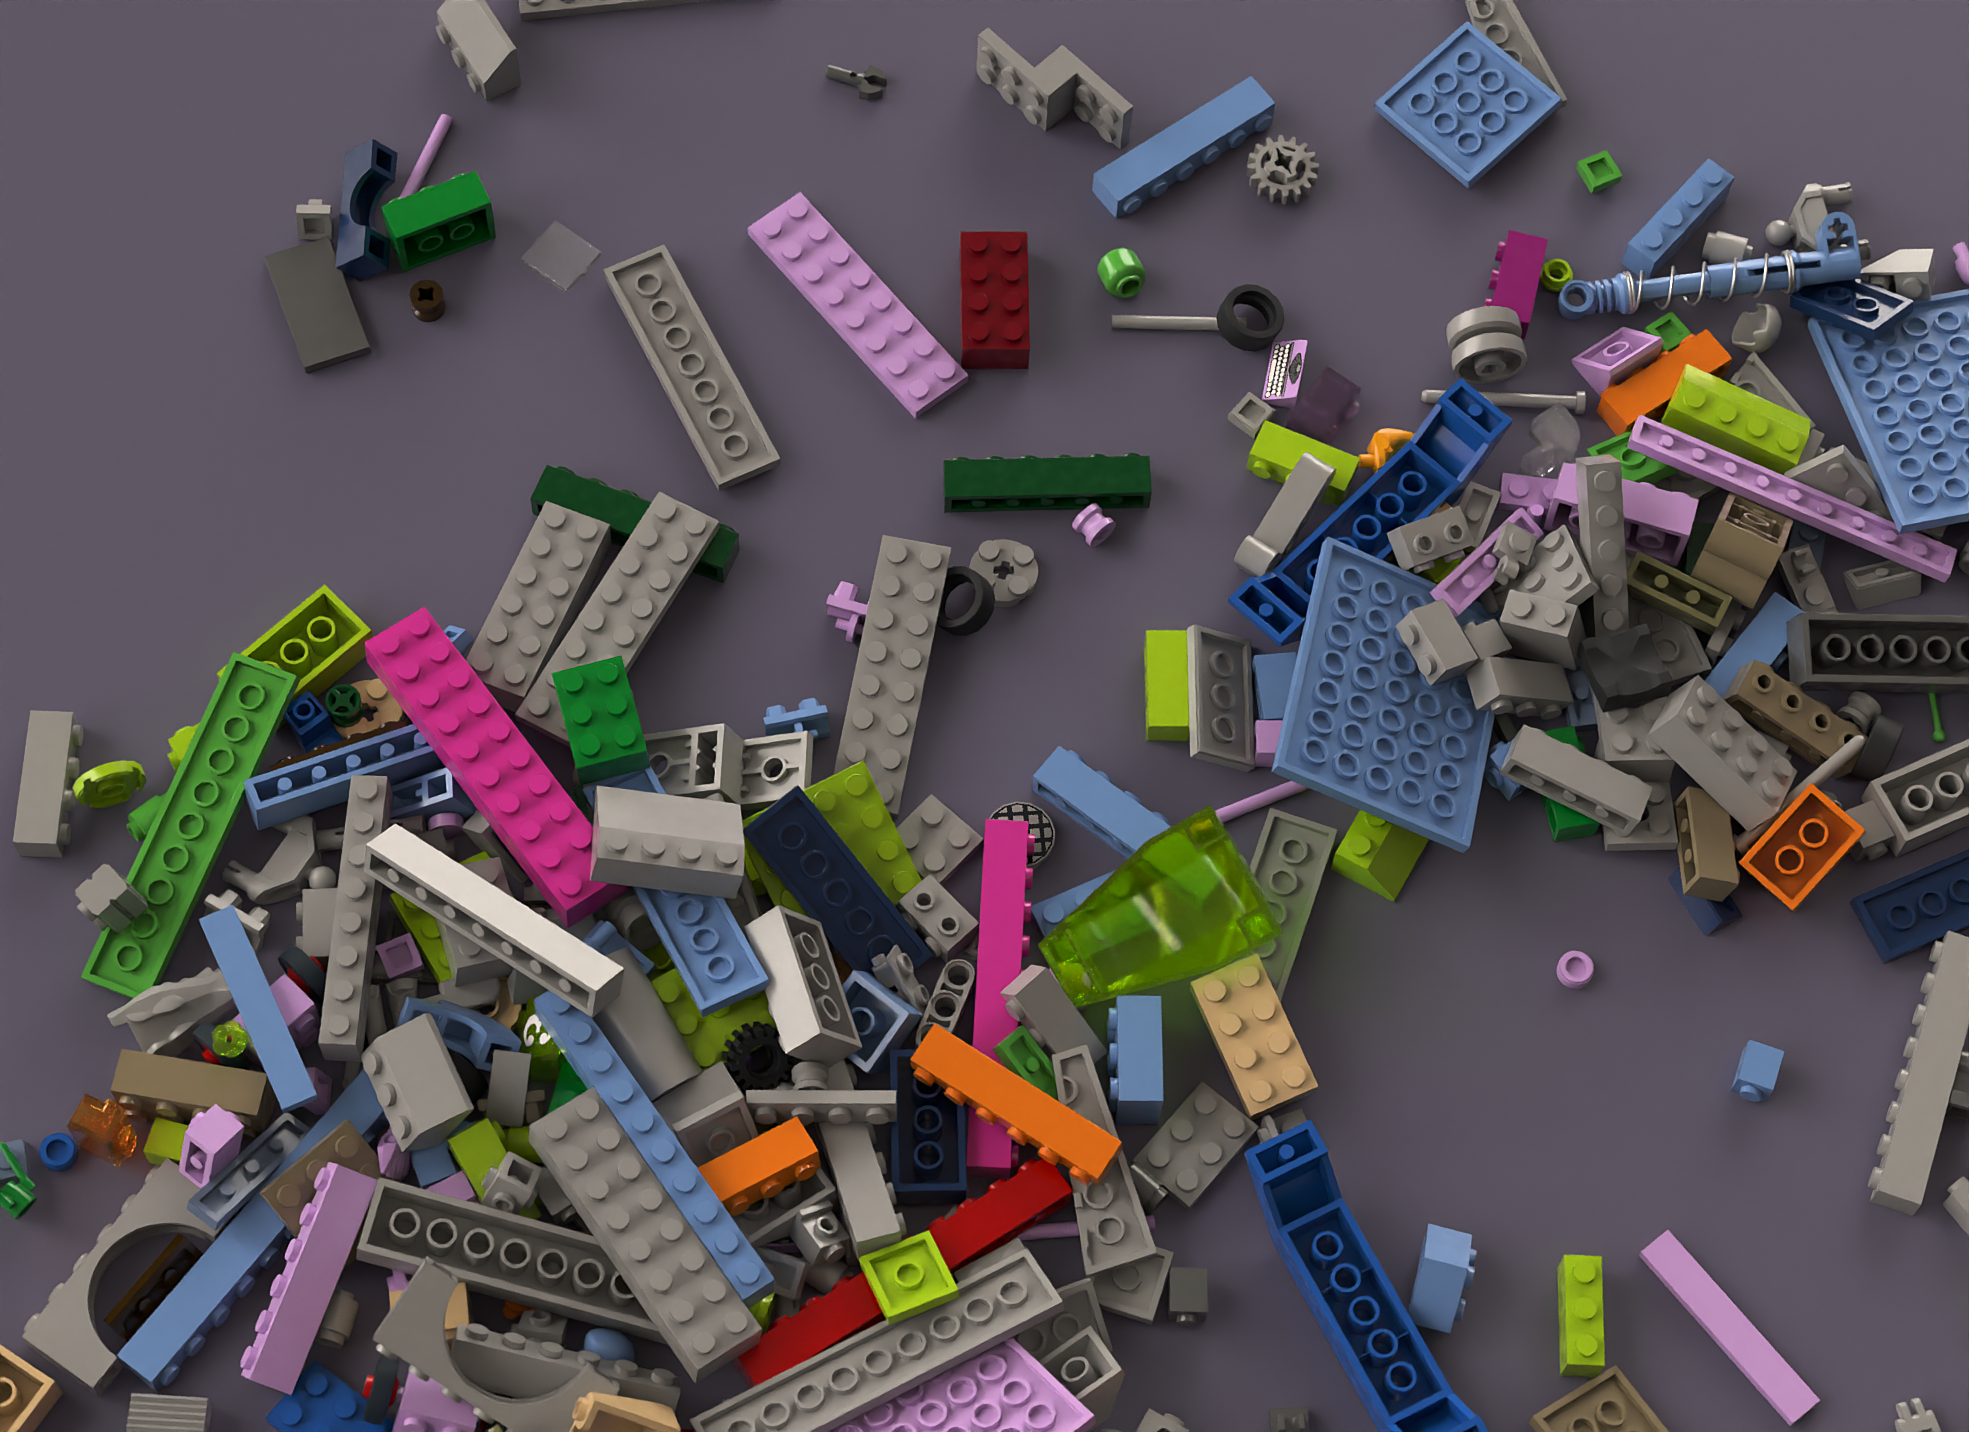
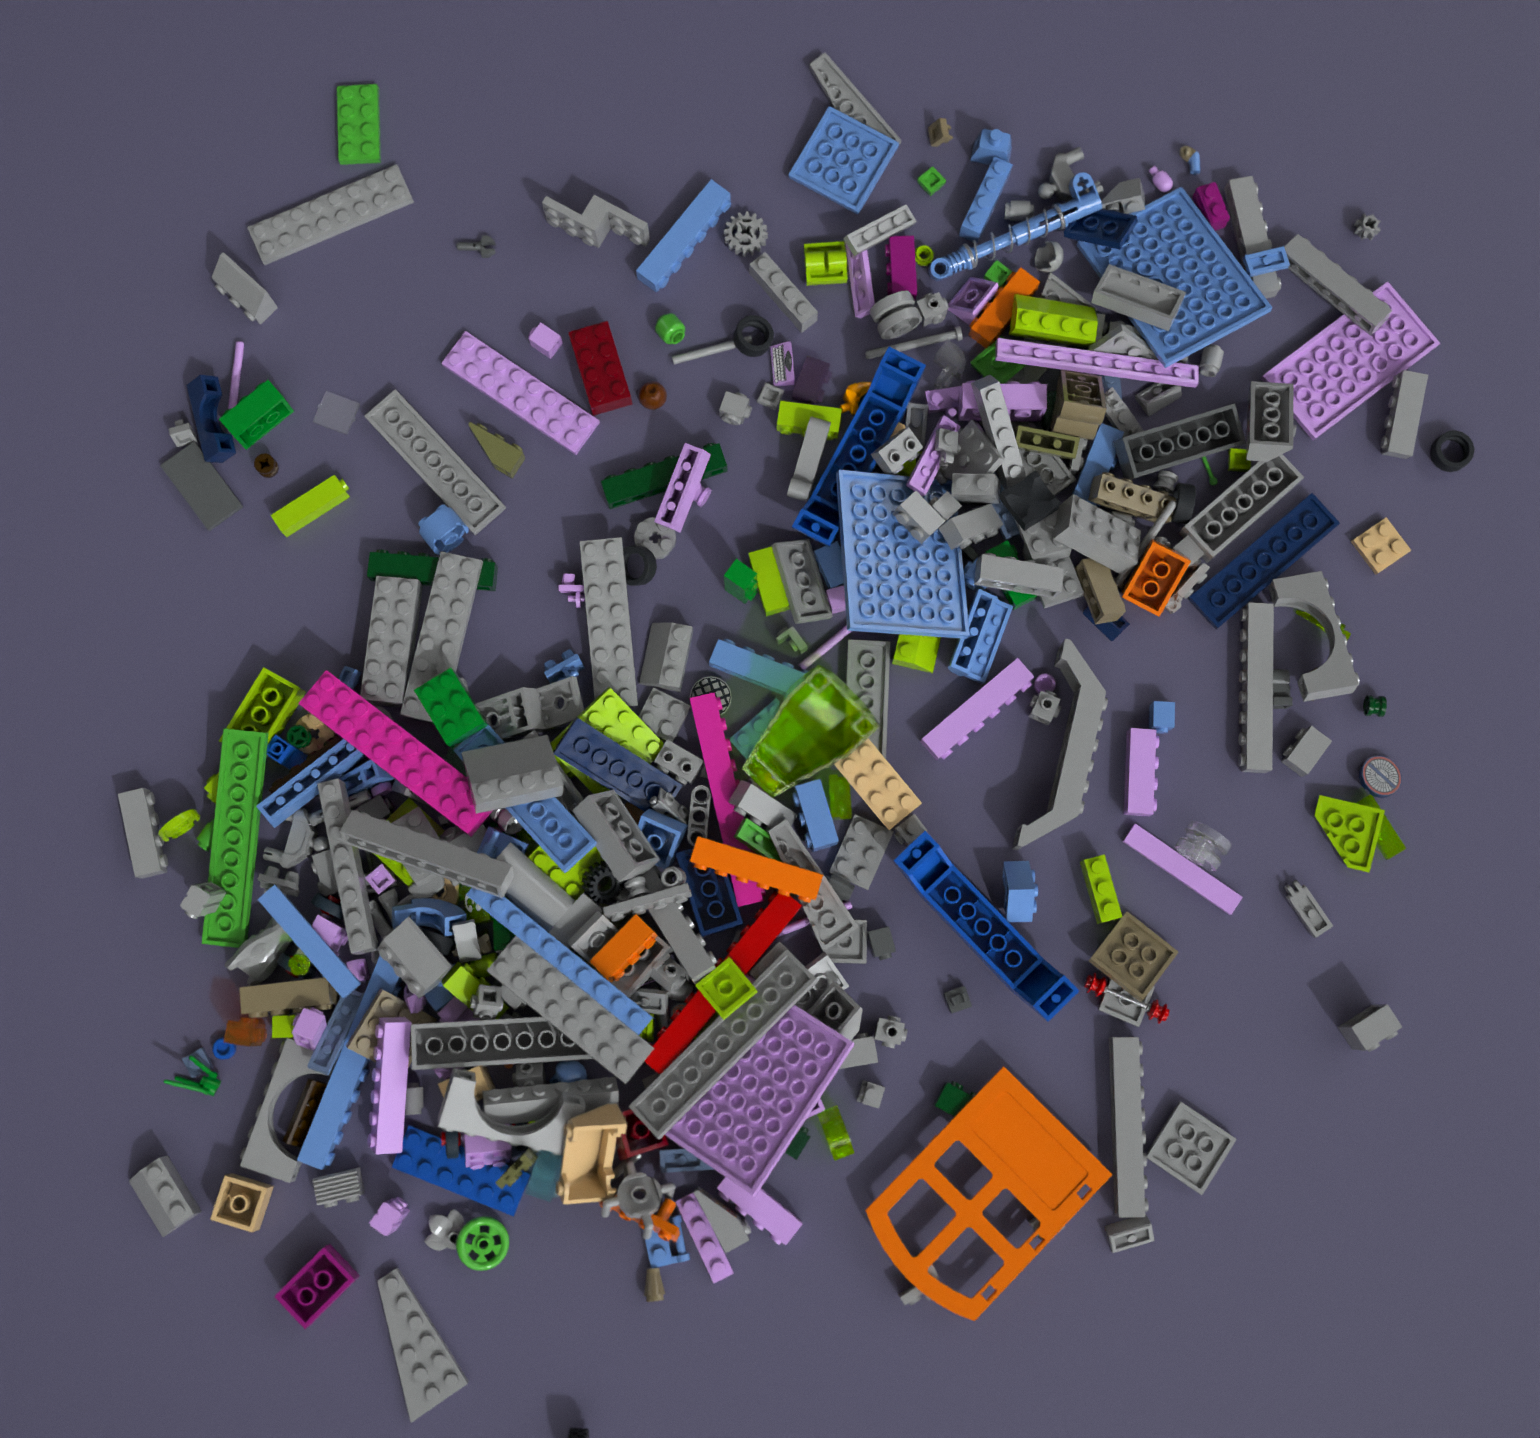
camera: 15 degrees left, 15 degrees up
(477, 376) = (311, 505): none -> lime brick
(672, 463) = (443, 530): none -> medium blue brick
(799, 383) = (502, 455): none -> olive slope
(874, 1076) = (667, 874): none -> light grey brick
(920, 237) = (545, 340): none -> lavender brick
(969, 752) = (666, 656): none -> light grey slope
(1064, 362) = (652, 395): none -> reddish brown brick
(1070, 500) = (682, 487): none -> lavender brick
(1121, 666) = (741, 582): none -> green brick
(1181, 783) = (795, 641): none -> bracket
(1184, 1047) = (839, 797): none -> clear neon green bracket
(1189, 415) = (735, 408): none -> light grey brick
(1316, 268) = (783, 292): none -> light grey brick
(1396, 245) = (825, 263): none -> lime plate
(1446, 274) = (860, 282): none -> lavender plate
(1451, 975) = (976, 709): none -> lavender brick
(1496, 216) = (879, 230): none -> light grey plate
(1501, 849) = (986, 626): none -> medium blue brick
(1547, 353) = (932, 308): none -> light grey brick
(1564, 1001) = (1042, 713): none -> light grey brick
(1595, 1088) = (1076, 748): none -> light grey slope
(1631, 106) = (939, 132): none -> dark tan tile
(1697, 1150) = (1140, 772): none -> lavender brick
(1709, 139) = (991, 144): none -> medium blue torso
(1772, 1291) = (1203, 846): none -> clear wheel
(1849, 884) = (1185, 588): none -> light grey hinge
(1884, 418) = (1138, 297): none -> light grey slope

